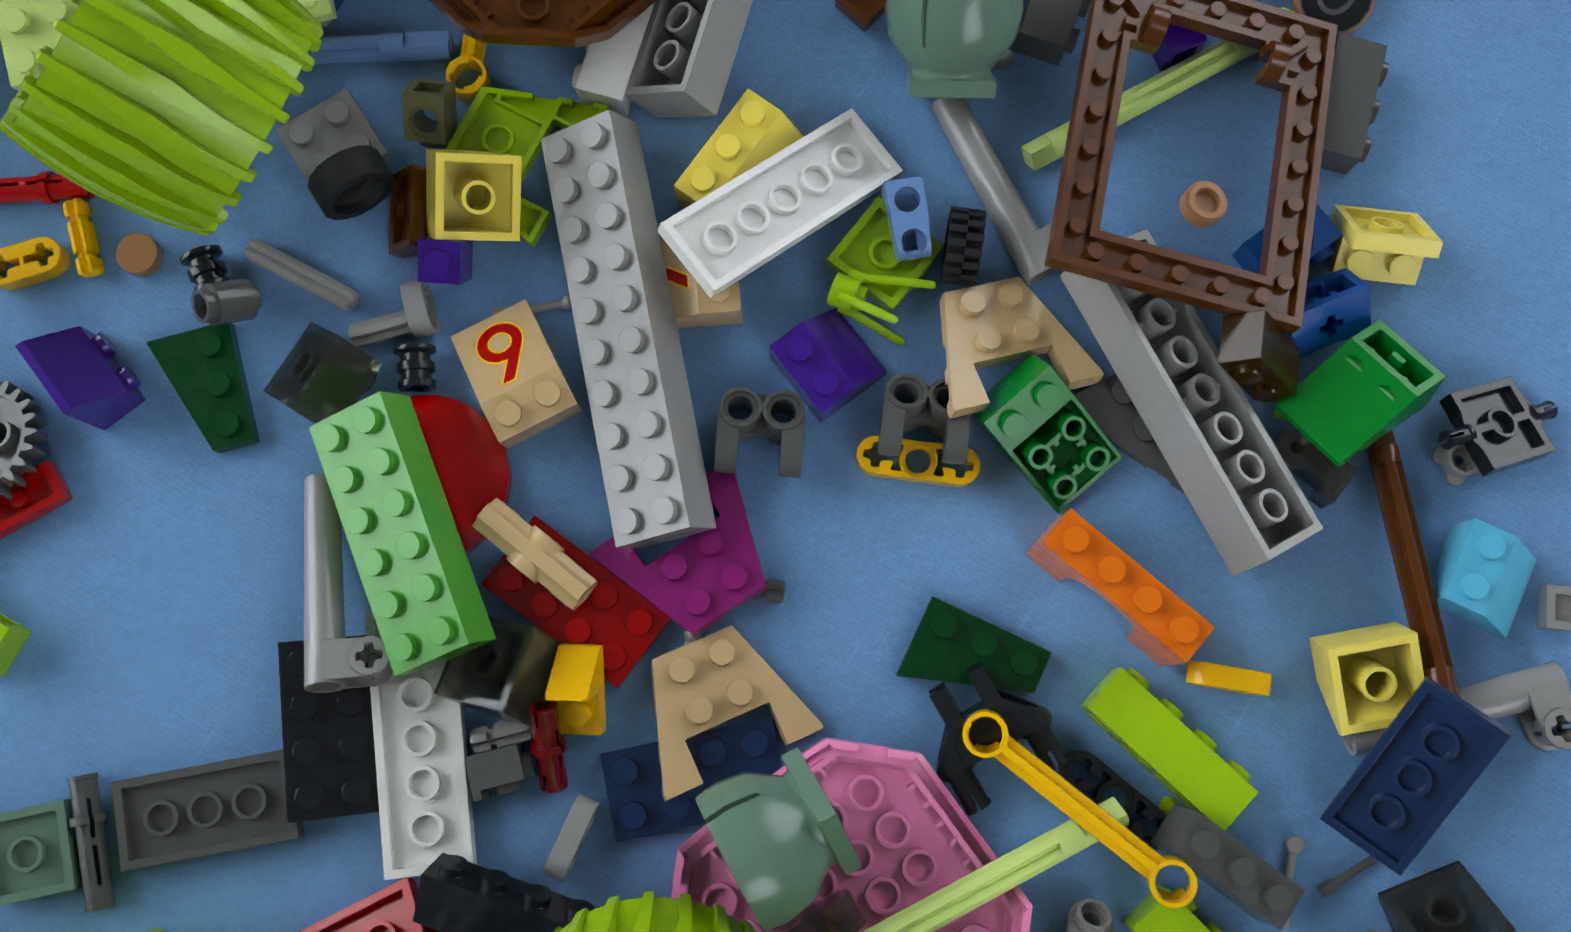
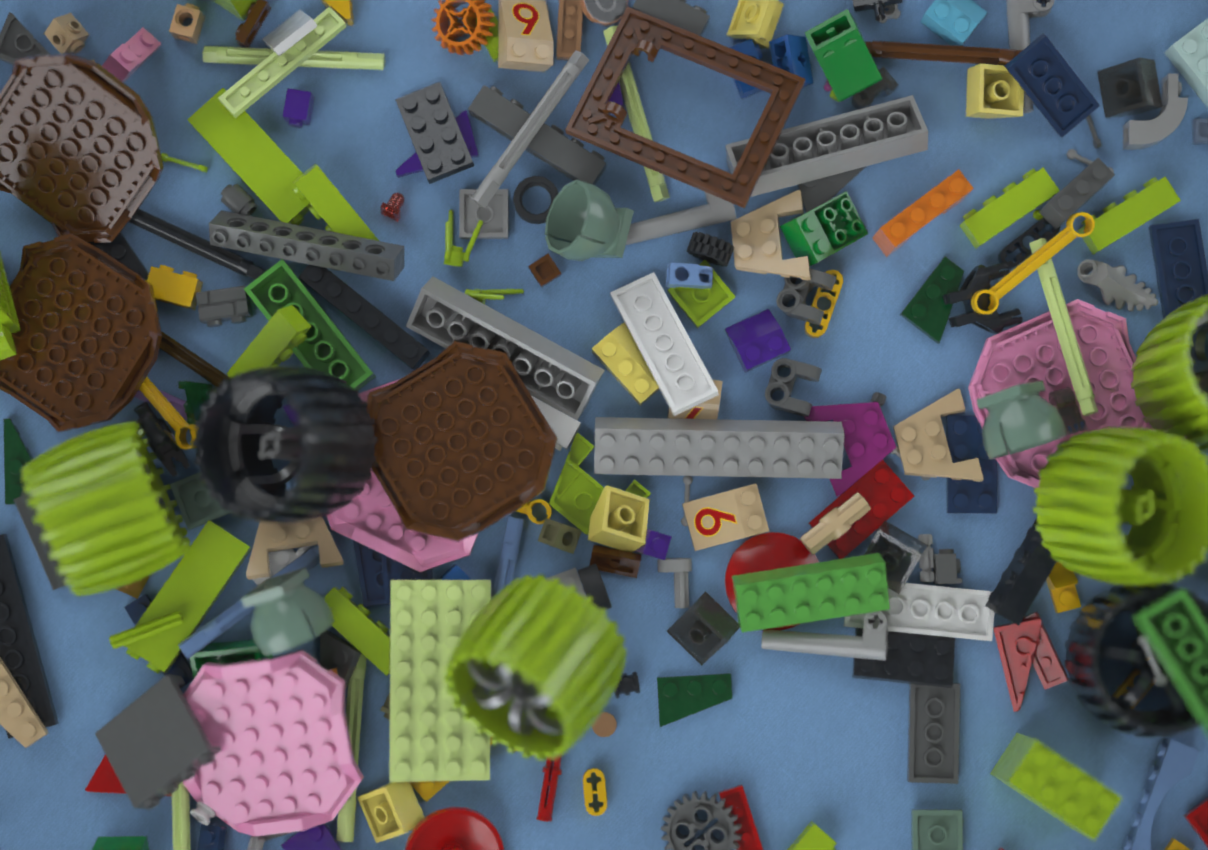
camera: 80 degrees left, 5 degrees up
(83, 238) = (587, 755): yellow axle -> none
(83, 375) = (675, 761): dark purple slope -> none
(99, 890) = (937, 799): dark grey pin -> none
(226, 302) = (649, 674): dark grey brick -> none
(302, 275) = (643, 624): light grey axle -> none
(415, 367) = (709, 573): black bush -> none
(548, 746) = (939, 538): dark red pin -> none
(571, 838) = (990, 536): light grey beam -> none
(579, 689) = (911, 515): yellow slope -> none
(850, 296) = (723, 319): lime plant -> none
(1203, 204) = (727, 113): medium nougat tile -> none
(1228, 678) = (979, 165): yellow beam -> none
(1259, 355) = (814, 104): dark brown piece -> none

